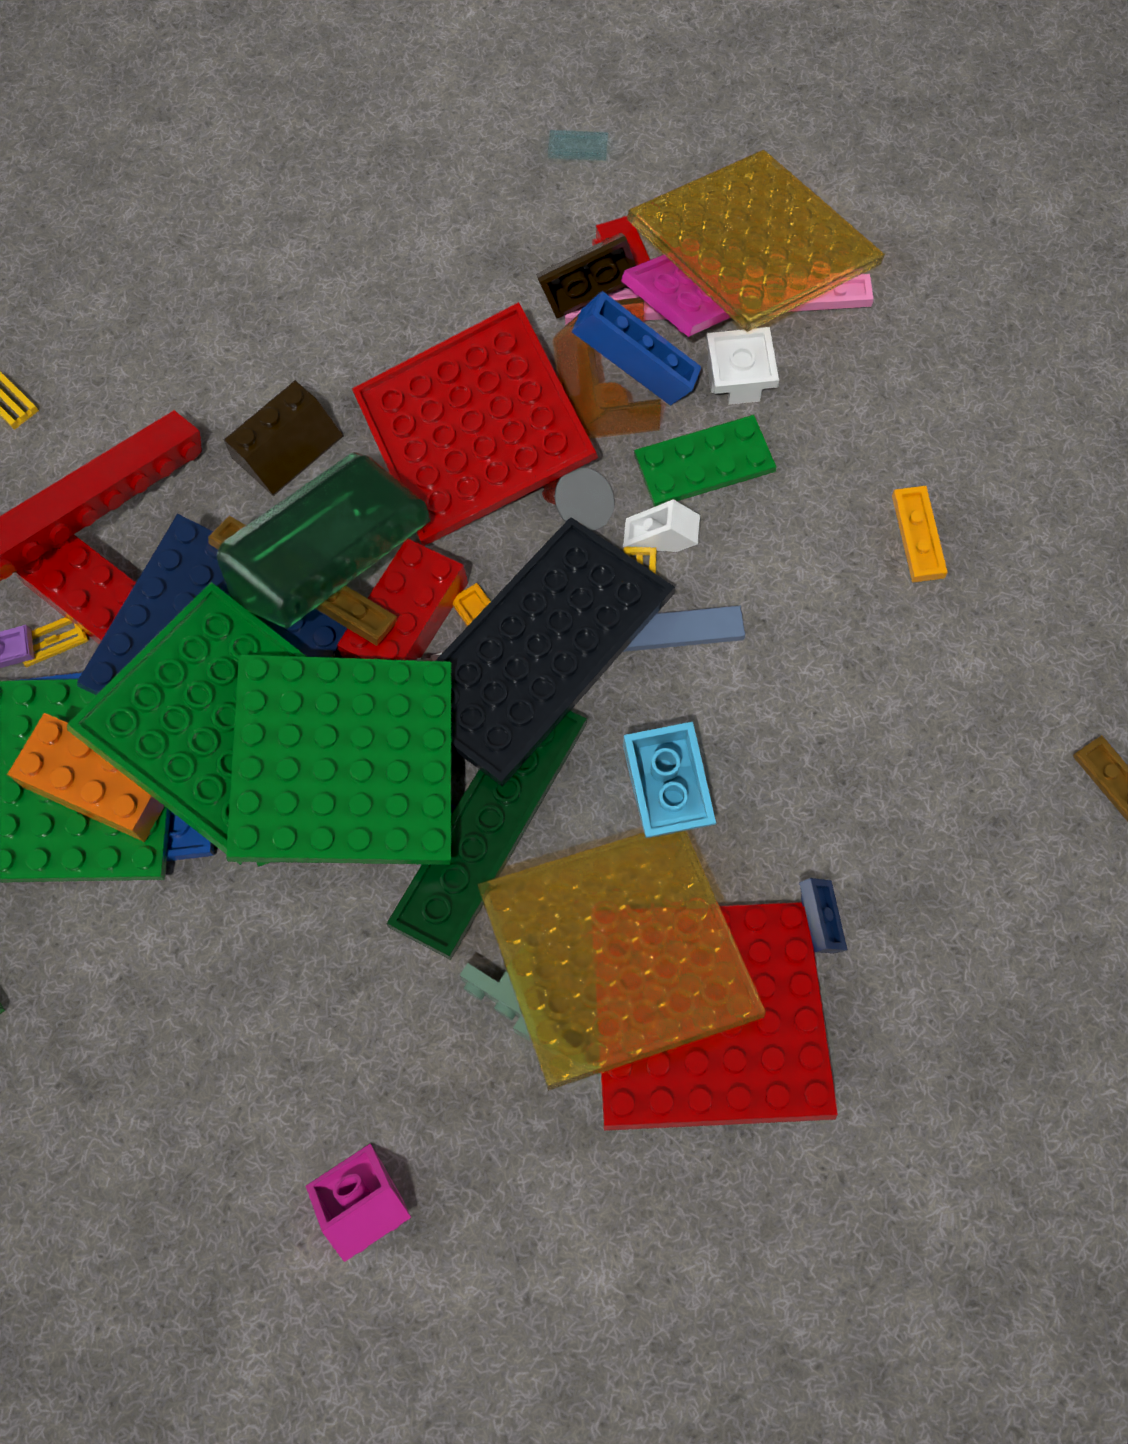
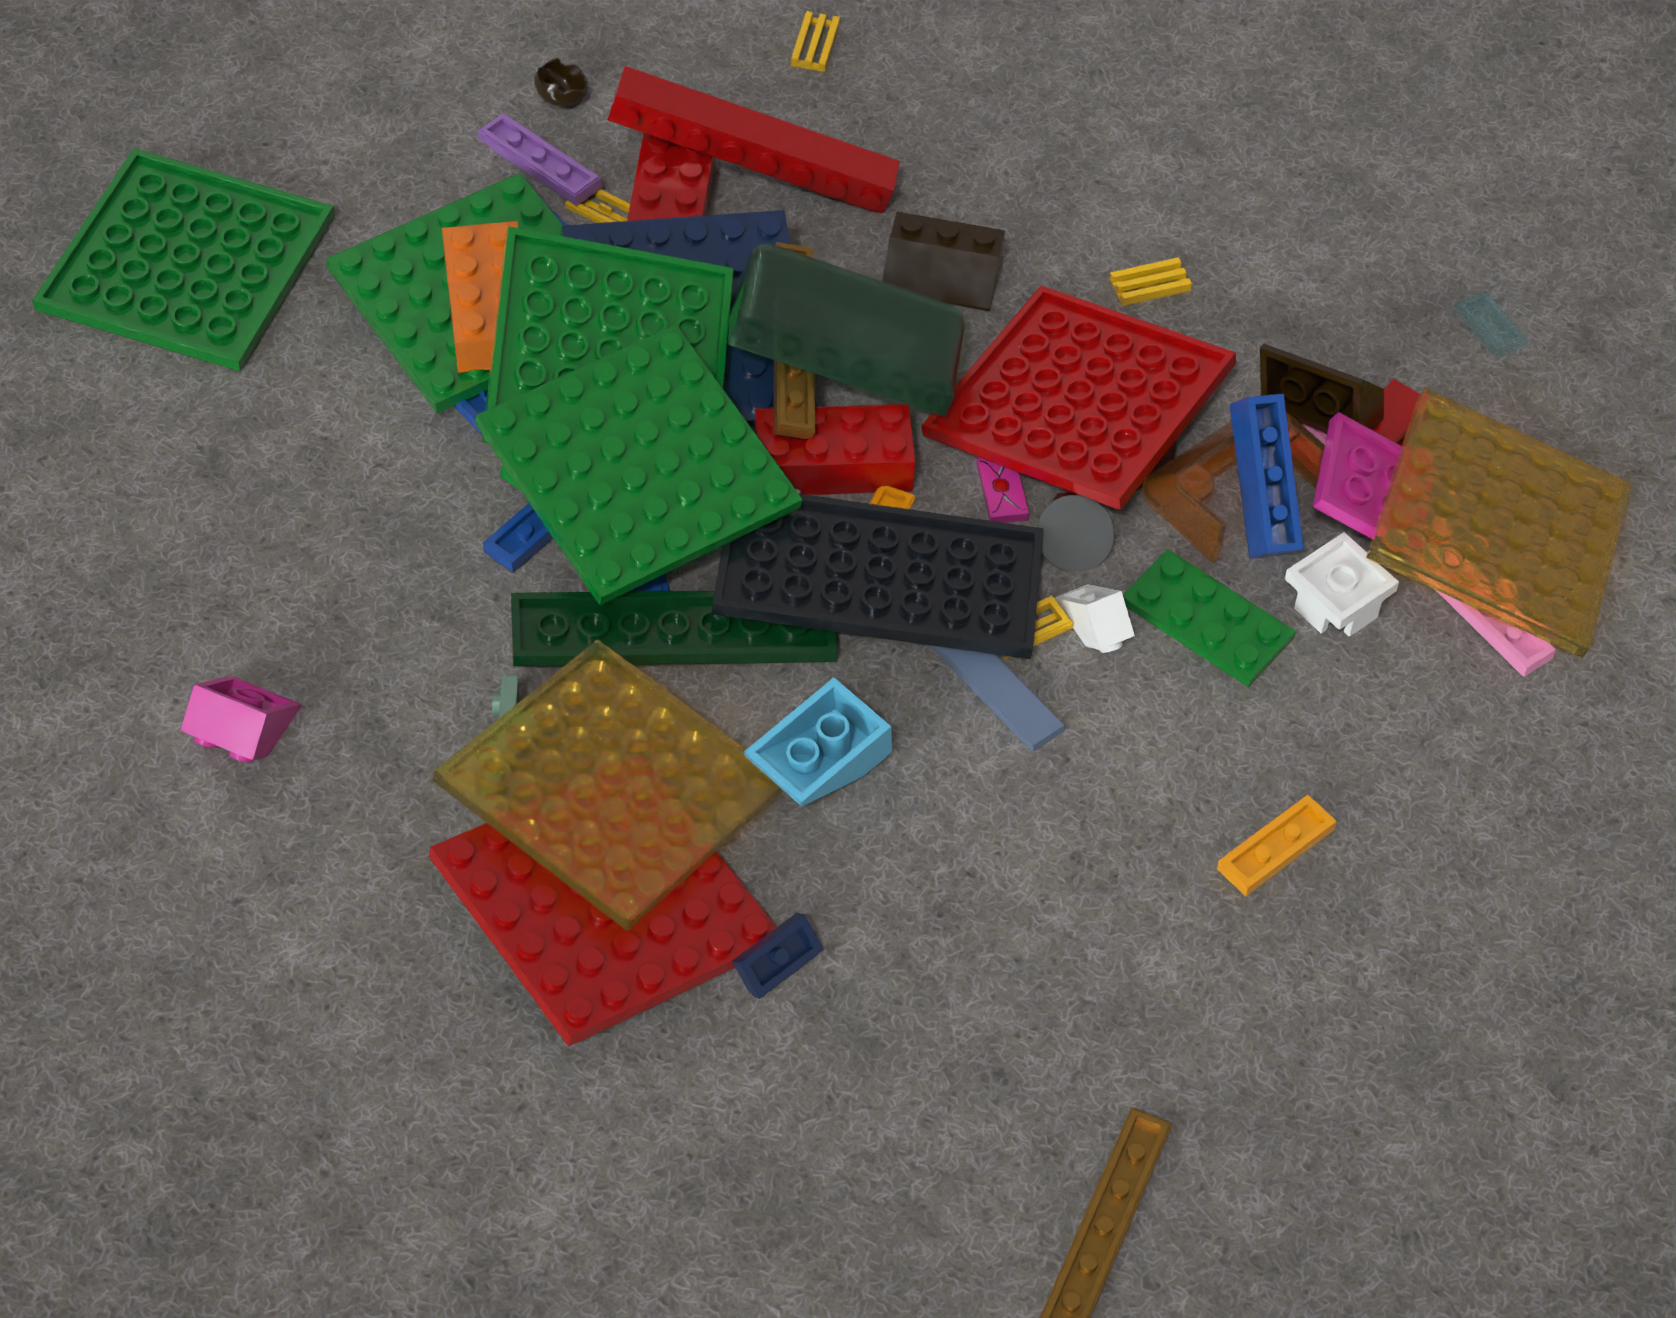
camera: 50 degrees right, 15 degrees down
(327, 888) = (517, 539): none -> blue plate
(383, 316) = (1148, 277): none -> yellow tile
(512, 525) = (1002, 492): none -> dark pink tile

